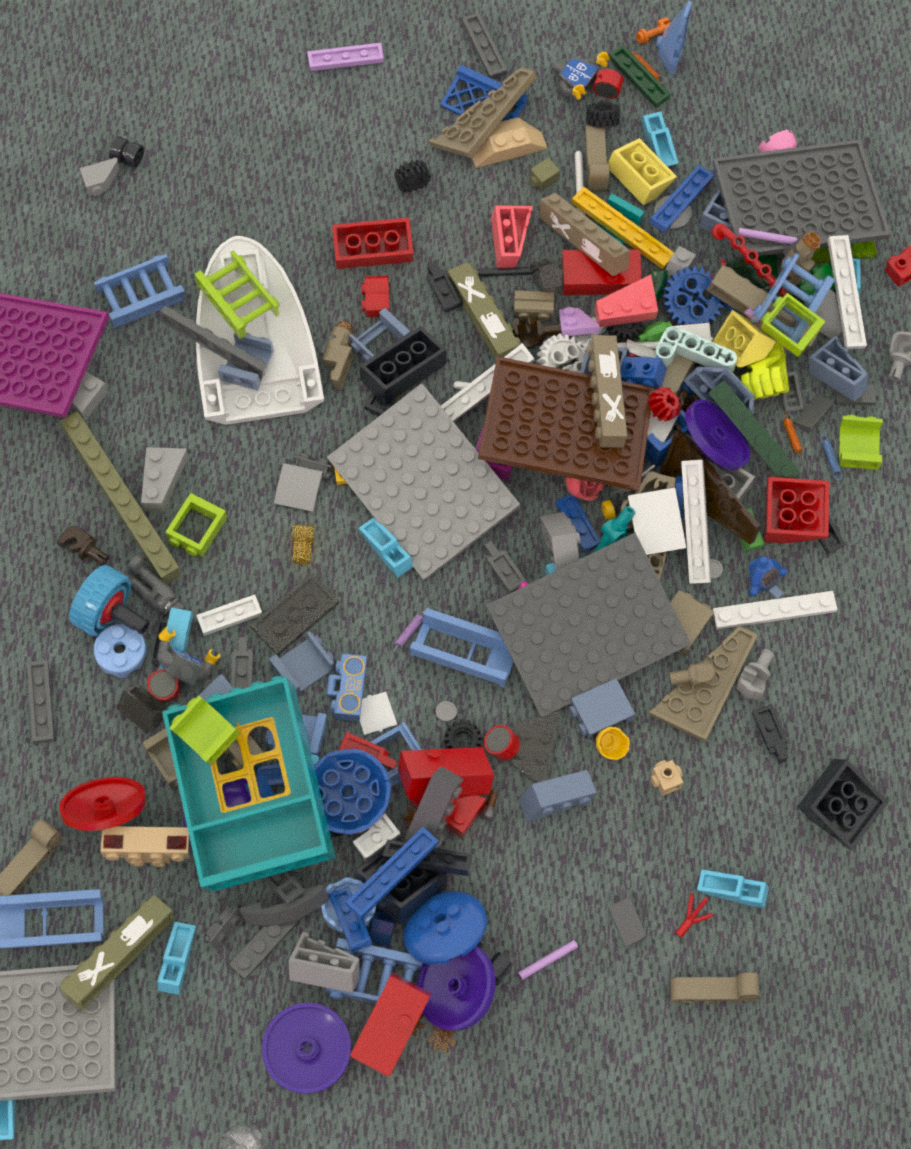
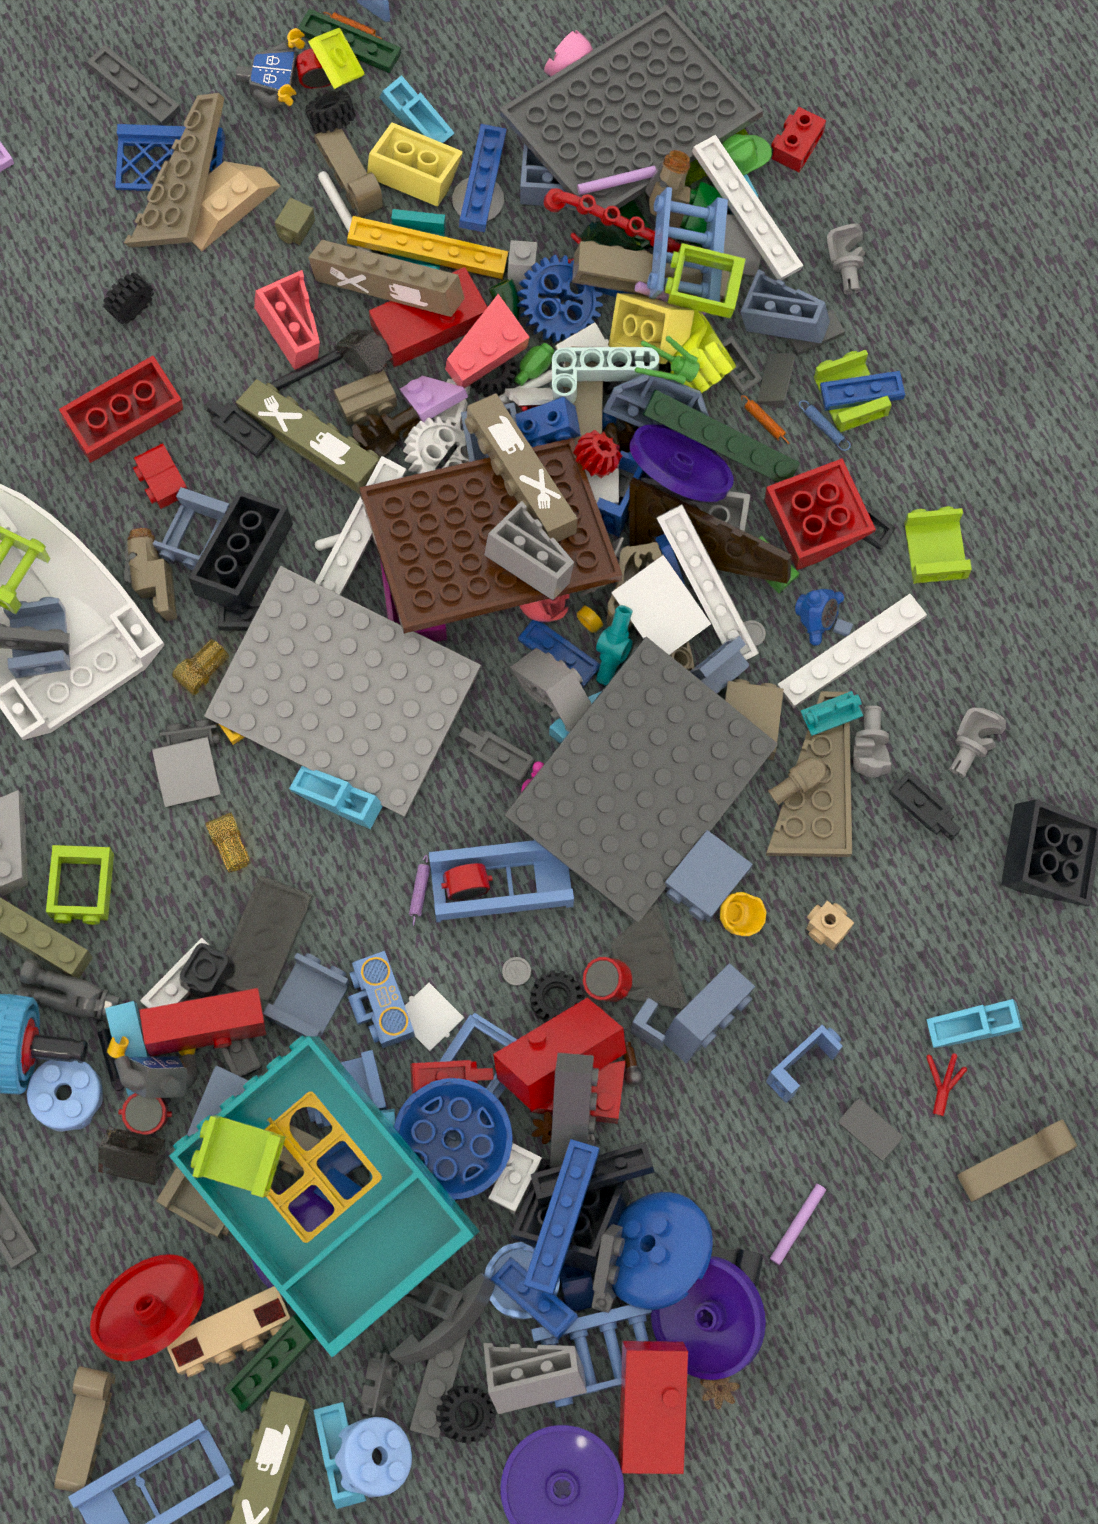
camera: 25 degrees left, 5 degrees up
(161, 876) = (270, 1363): none -> dark green plate
(183, 967) = (356, 1461): none -> light blue plate
(227, 644) = (203, 1022): none -> brick
(246, 616) = (206, 971): none -> black piece
(282, 971) = (448, 1414): none -> black tyre
(335, 427) = (196, 671): none -> clear yellow piece
(404, 924) = (606, 1271): none -> dark grey hinge
(442, 638) = (466, 881): none -> red piece
(510, 780) = (641, 1027): none -> sand blue panel
(584, 443) = (529, 553): none -> light grey wedge
(602, 848) = (781, 1081): none -> medium blue panel
(623, 82) = (336, 58): none -> neon yellow tile
(680, 578) = (722, 665): none -> sand blue panel
(738, 642) = (832, 713): none -> teal hinge
(750, 373) = (684, 366): none -> bright green plant
(827, 701) = (974, 726): none -> light grey piece
(862, 443) = (861, 390): none -> blue tile
(867, 257) = (748, 151): none -> bright green piece
(867, 568) = (936, 545): none -> lime panel

